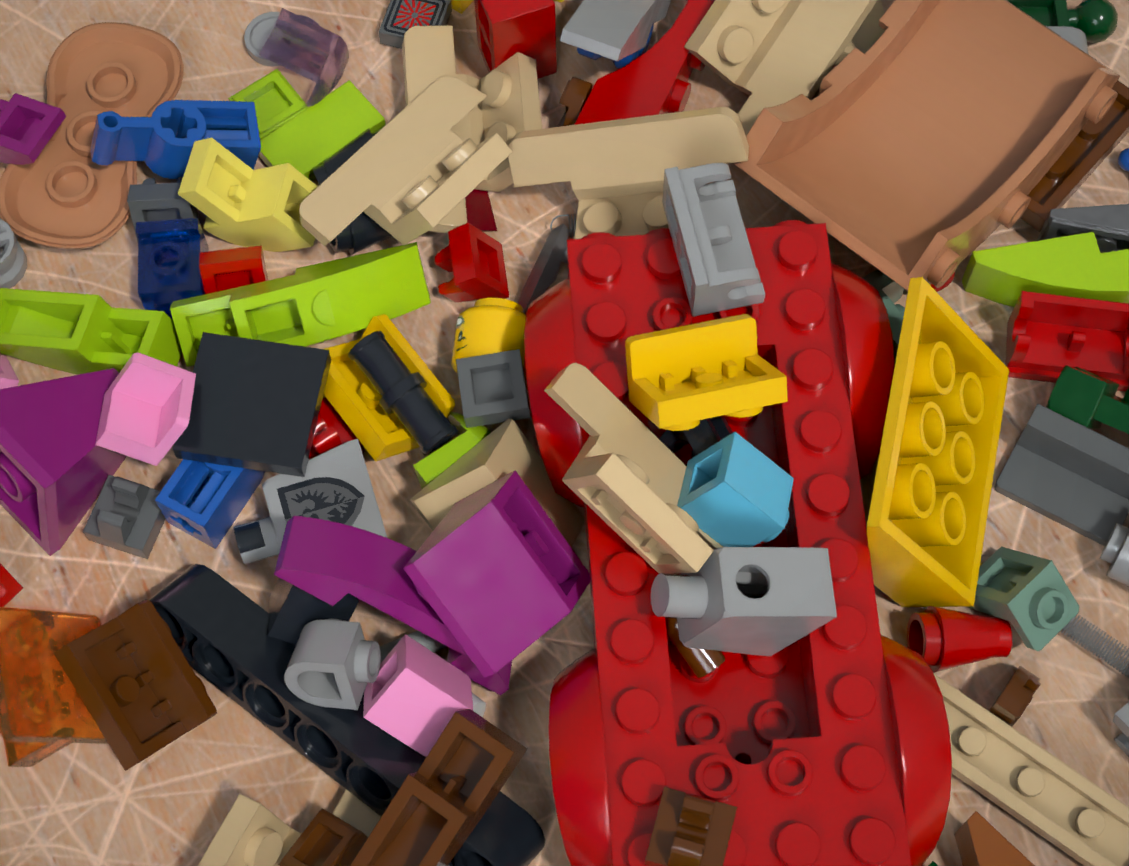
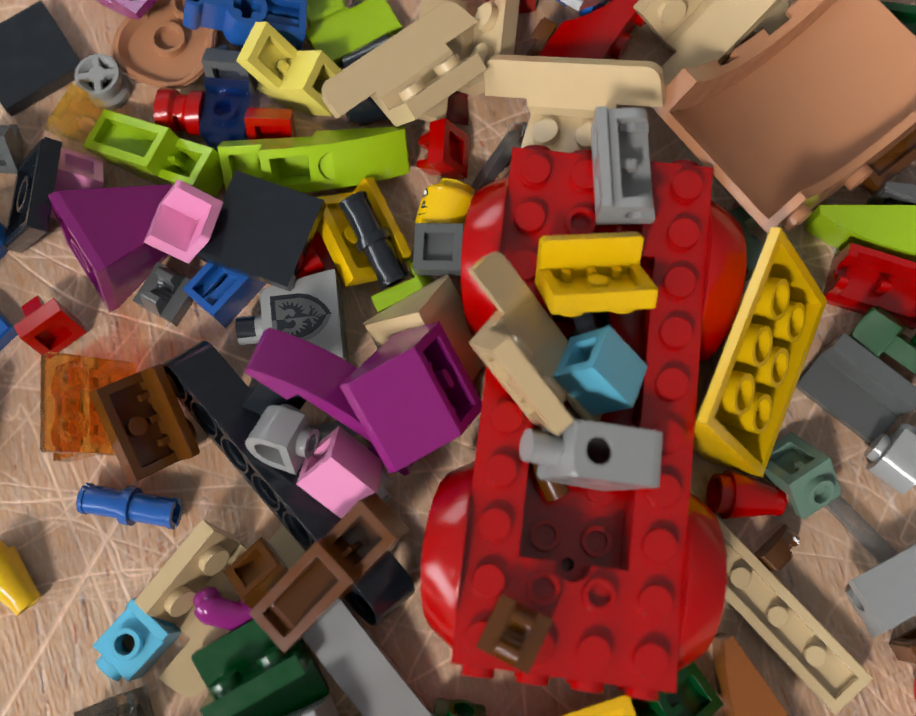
camera: 15 degrees right, 10 degrees up
(107, 272) = (179, 110): none -> red wheel
(128, 805) = (129, 505): none -> blue pin

